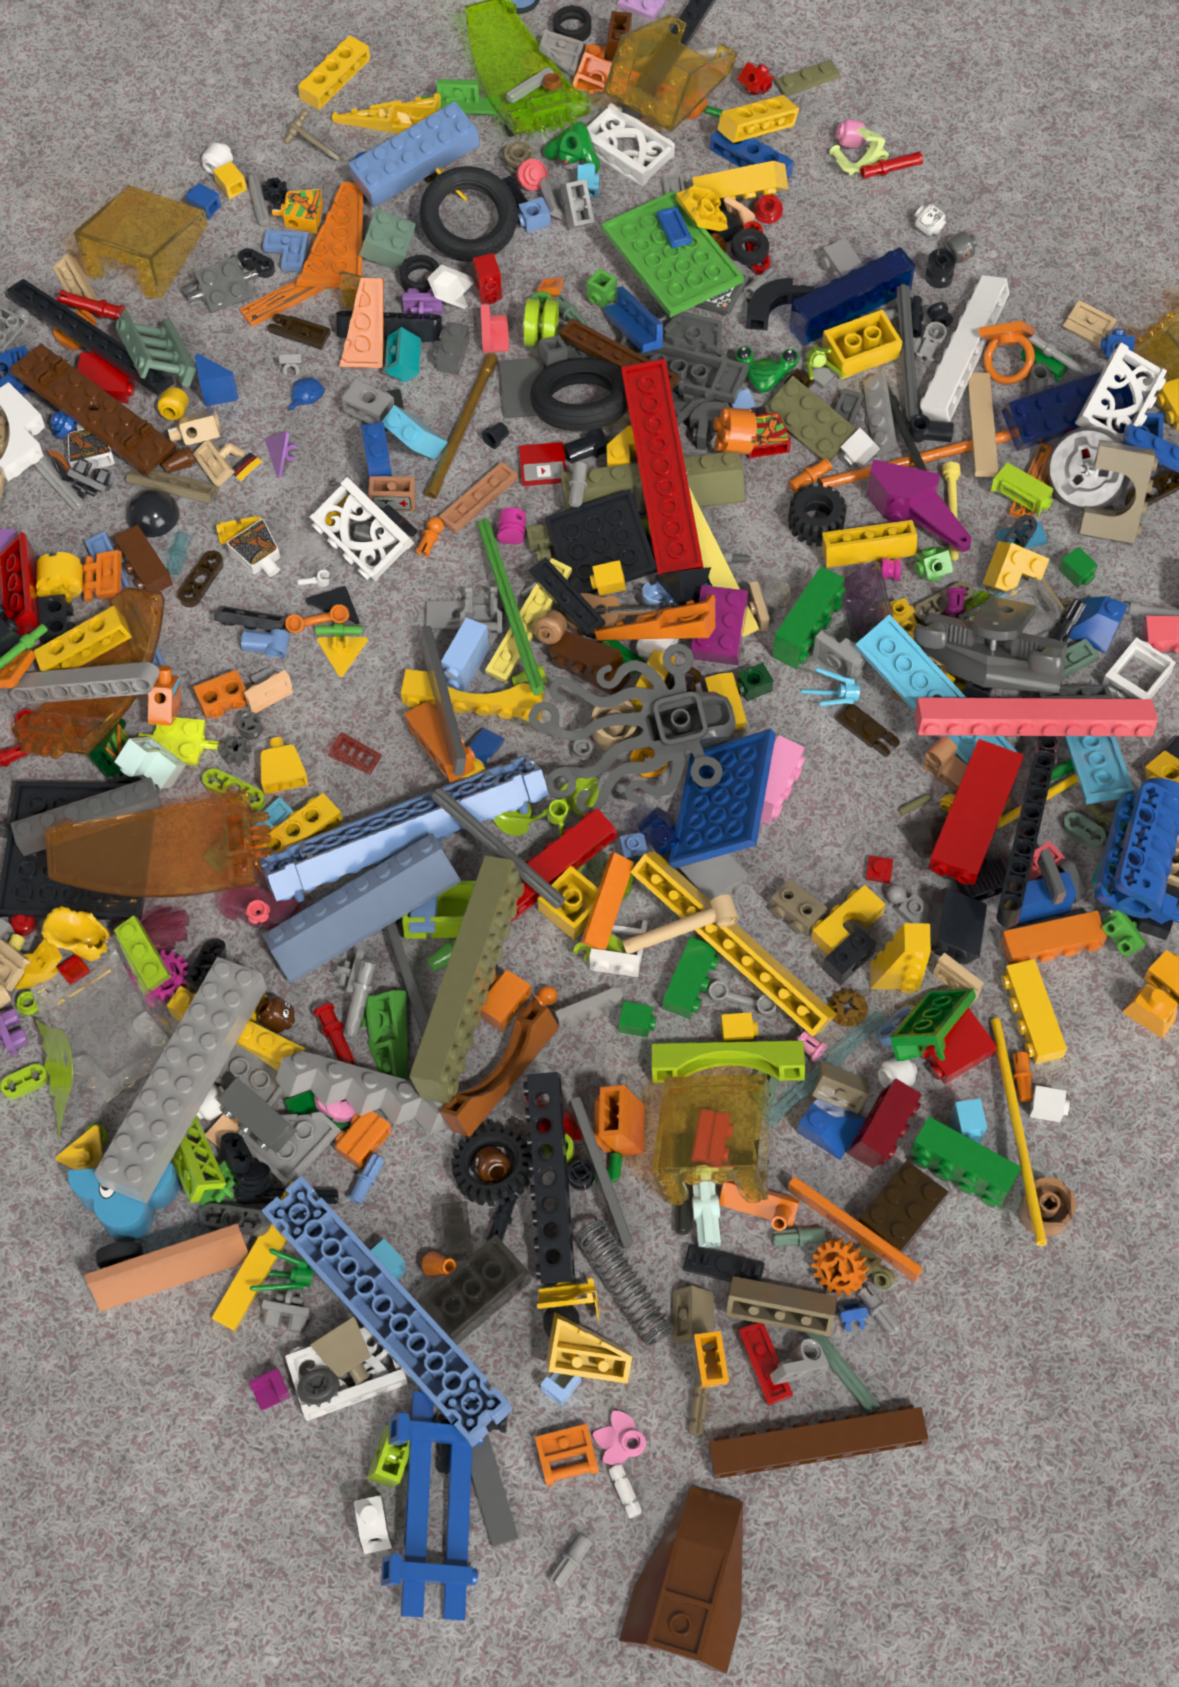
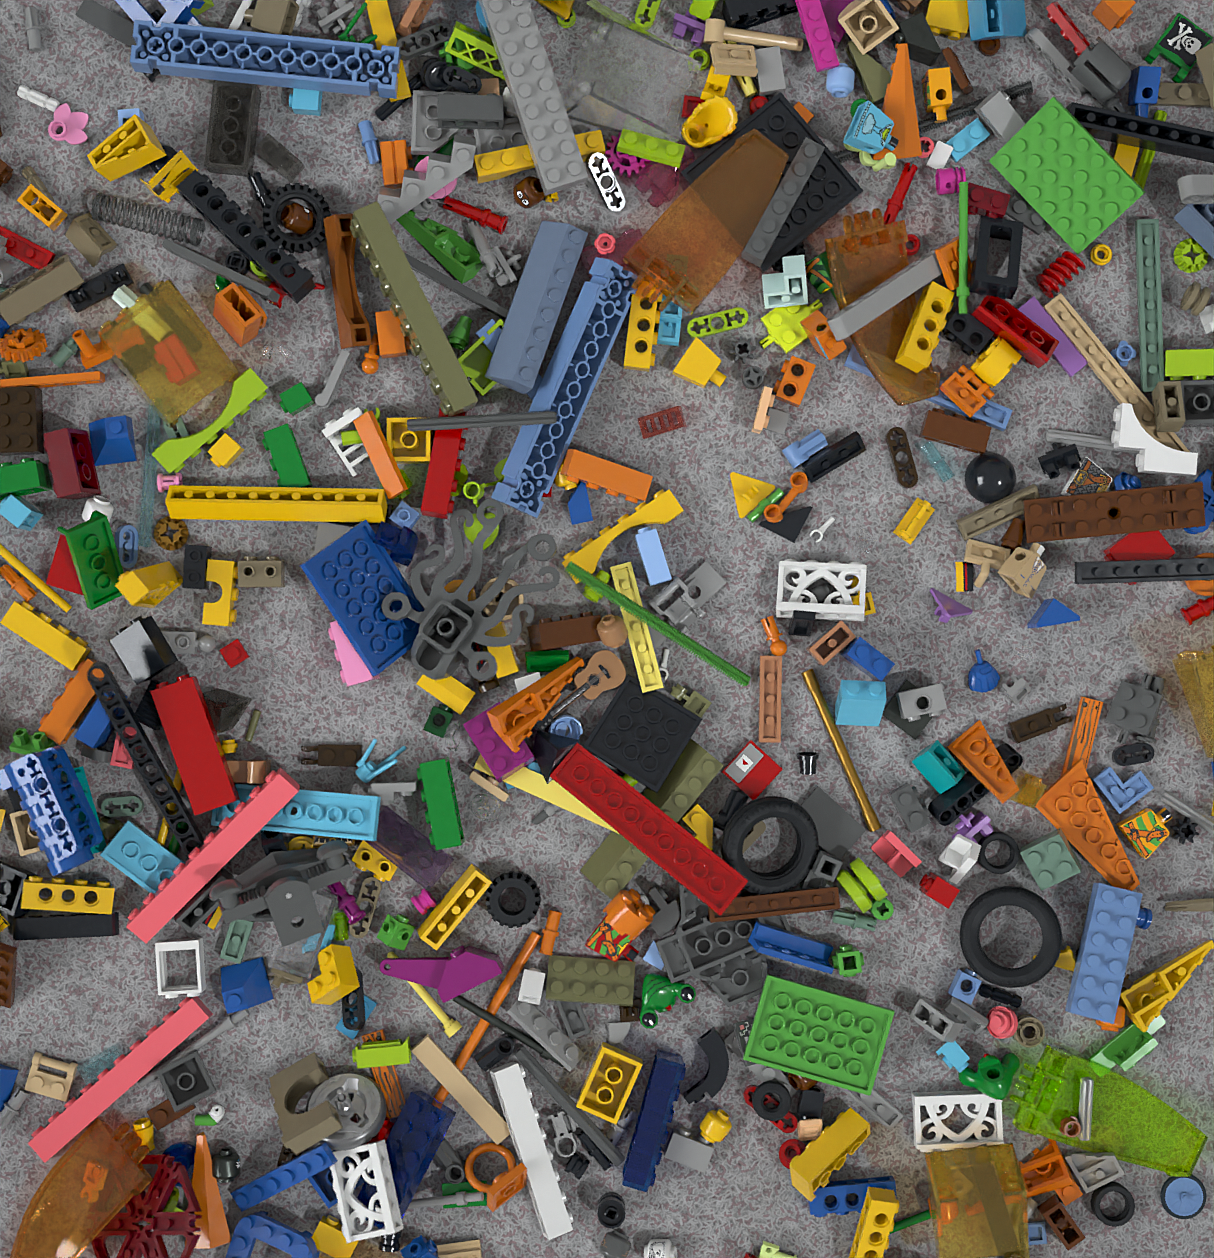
camera: 140 degrees right, 25 degrees up
(62, 465) = (1098, 457): sticker -> none
(166, 339) = (1116, 619): sand green fence -> none
(173, 403) = (1064, 576): yellow head -> none
(256, 549) = (882, 512): torso -> none
(436, 1264) = (273, 125): orange cone -> none
(443, 701) = (626, 500): dark grey tile -> none
(510, 528) = (722, 694): dark pink piece -> none
(551, 285) = (890, 930): orange plate -> none
(562, 1446) = (96, 91): orange plate -> none
(566, 597) = (623, 664): black tile -> none
(577, 484) = (697, 761): light grey axle -> none
(608, 578) = (607, 706): yellow brick -> none
(674, 227) = (835, 1057): blue tile -> none
(702, 208) = (830, 1096): yellow slope -> none
(720, 993) = (260, 468): light grey bar -> none
(721, 912) = (292, 507): tan piece -> none
(759, 280) = (736, 1075): light grey axle -> none
(808, 264) = (715, 1126): none -> yellow head
(817, 358) = (631, 1042): lime plant -> none
(840, 1088) = (125, 470): dark tan panel -> none
(956, 976) = (105, 615): tan plate -> none
(1051, 876) = (95, 728): dark grey tile -> none
(1069, 620) = (260, 966): black axle -> none
(1078, 567) = (292, 1021): green brick -> none

